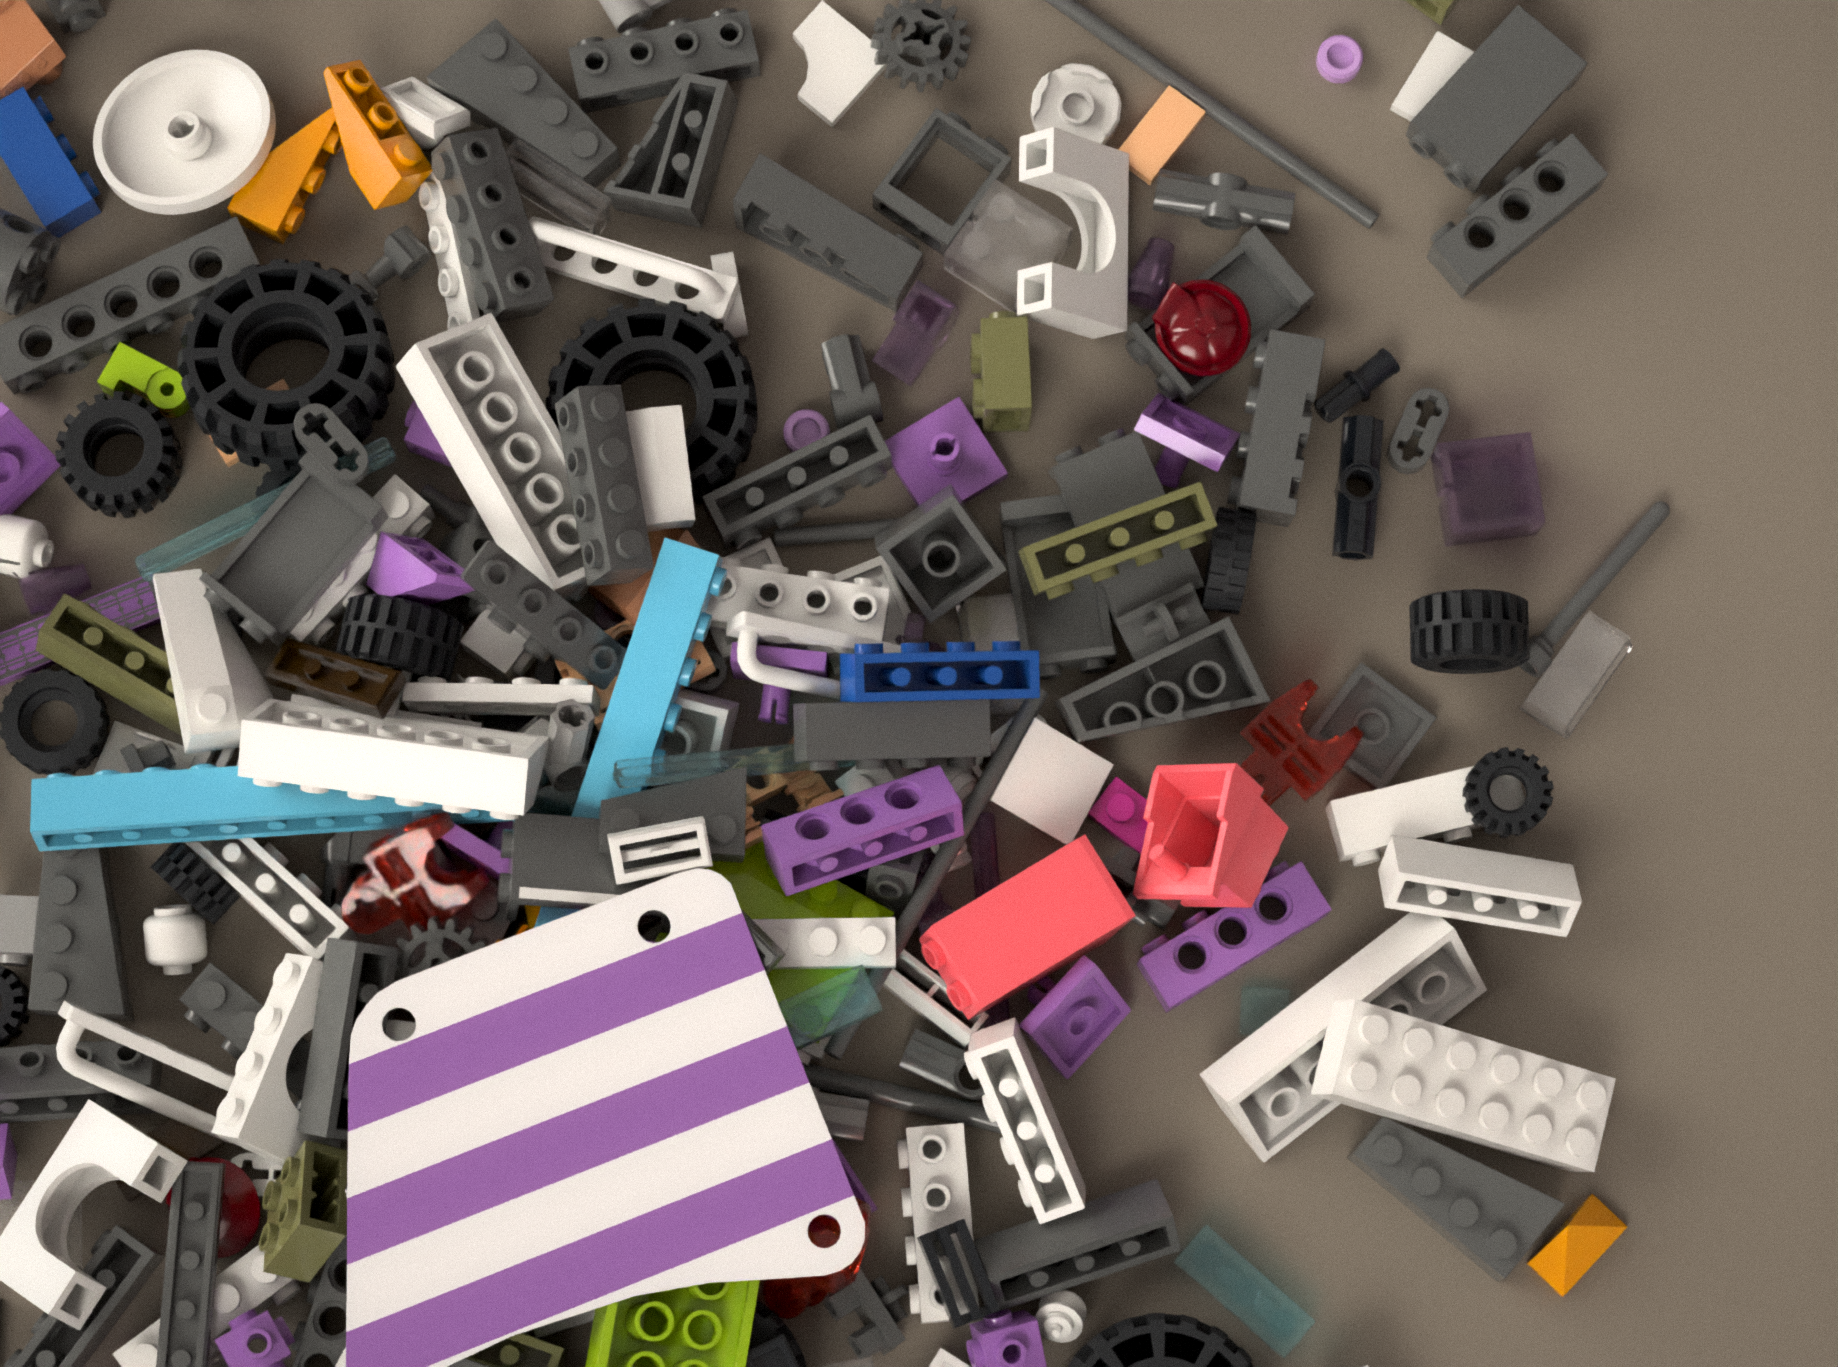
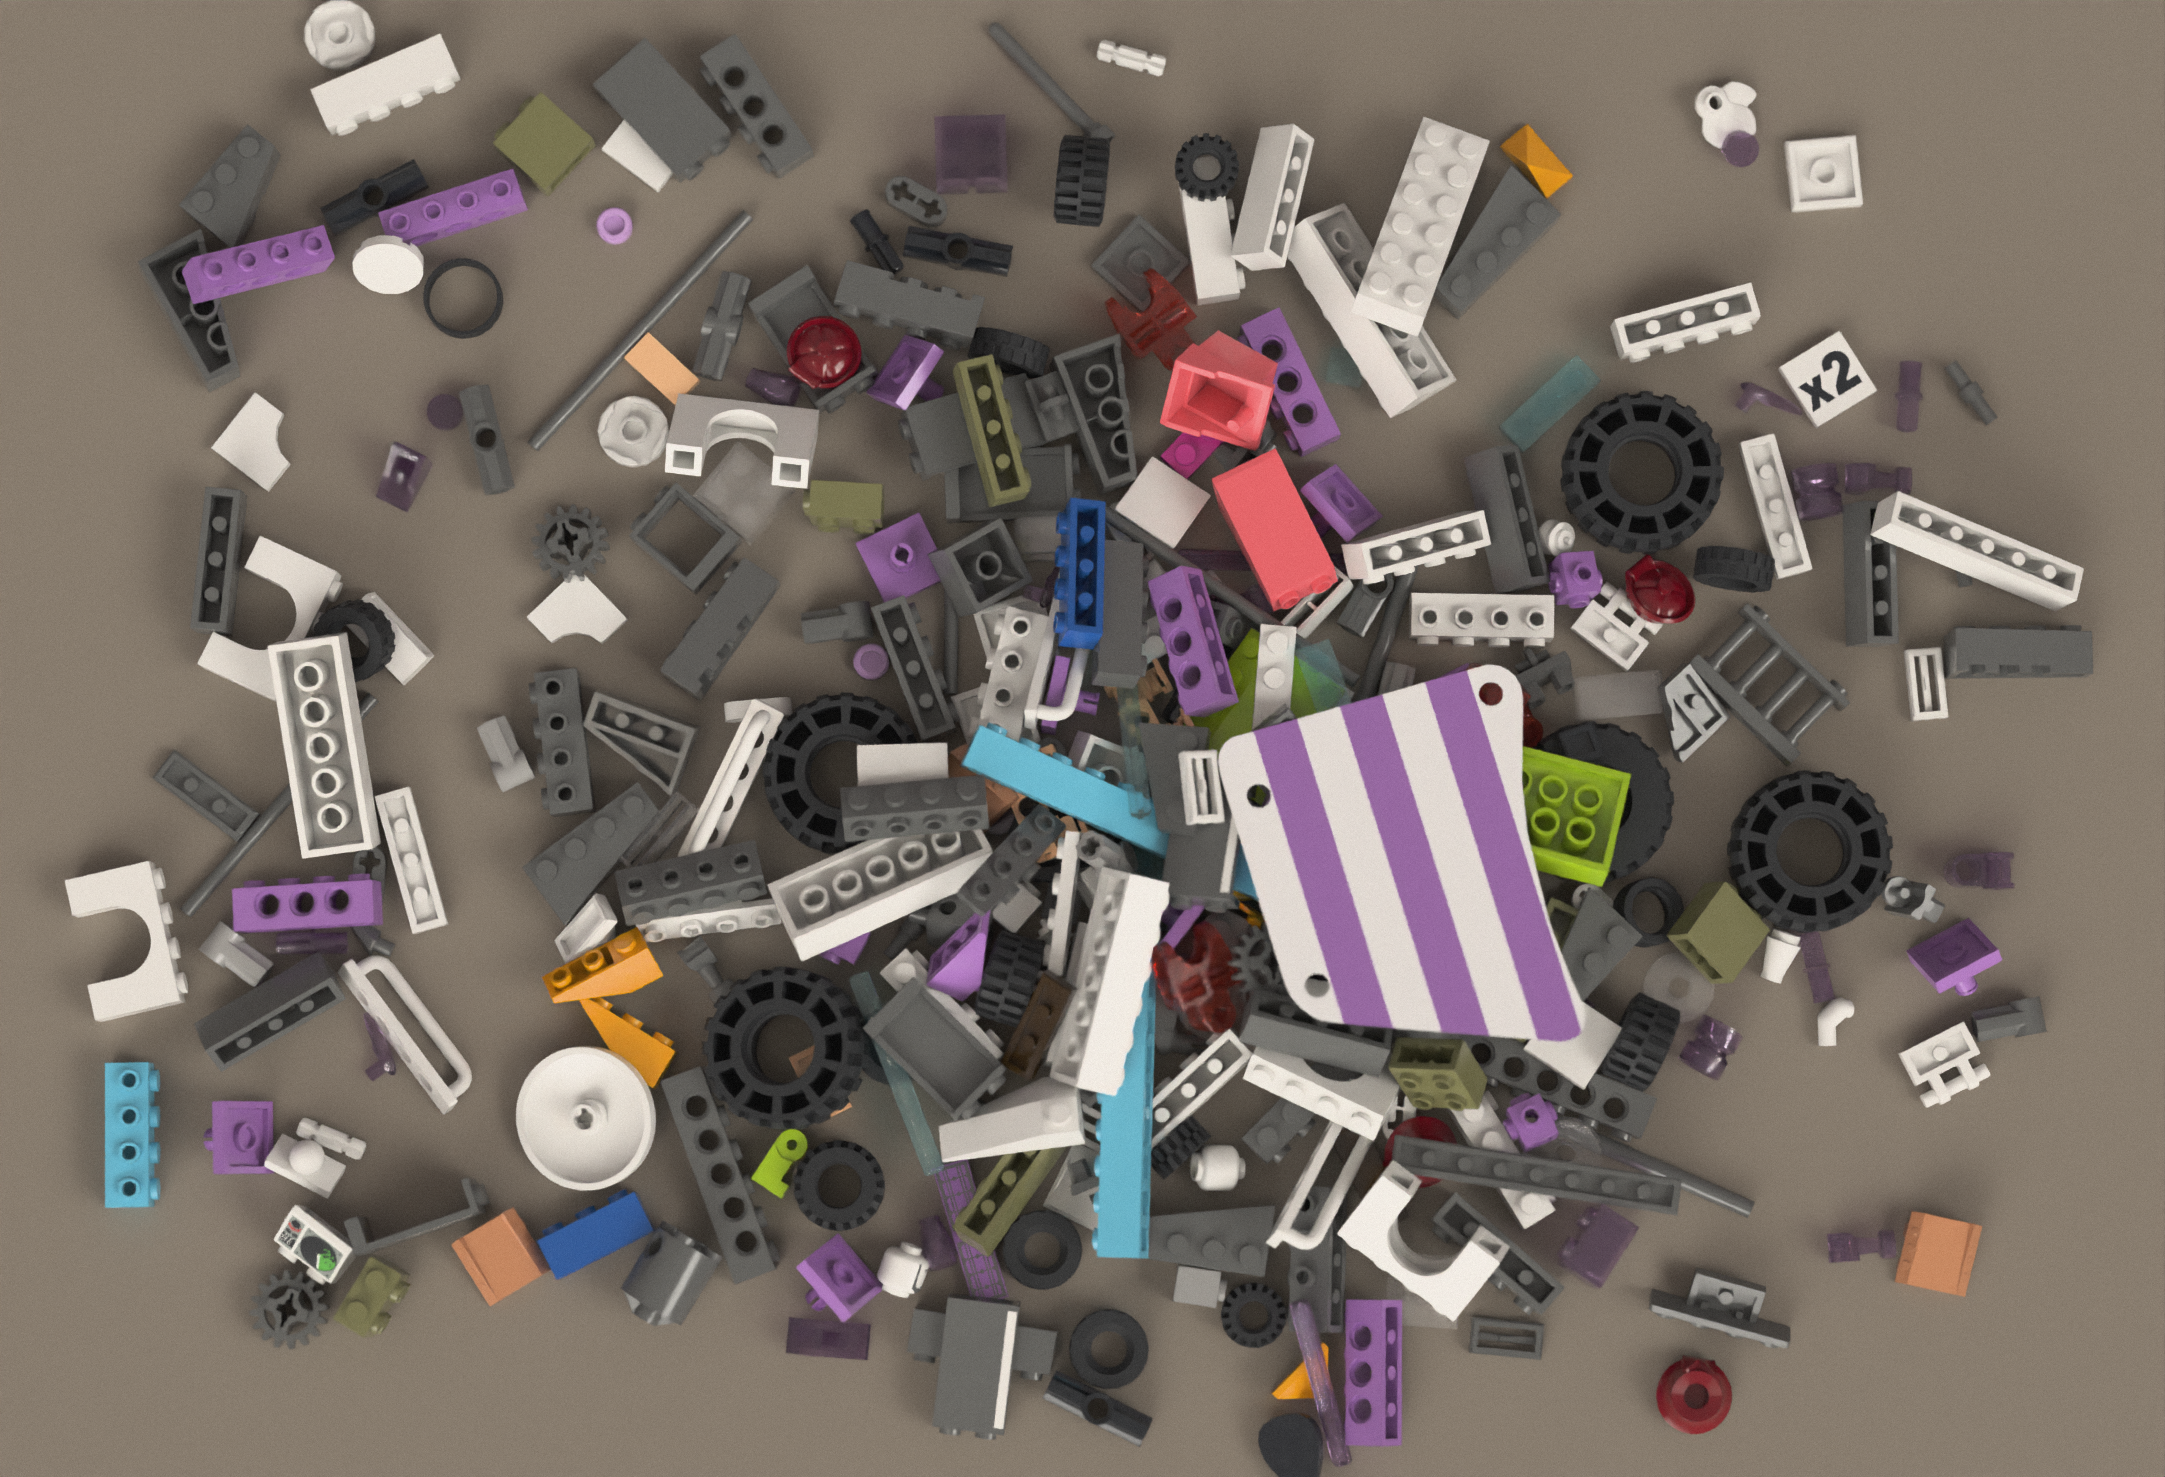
camera: 85 degrees left, 5 degrees up
(339, 436) = (859, 1003): dark grey beam -> none
(920, 329) = (806, 569): brick -> none
(975, 1265) = (1552, 596): black tile -> none
(1577, 675) = (1116, 107): clear piece -> none
(1646, 689) = (1131, 57): none -> white axle

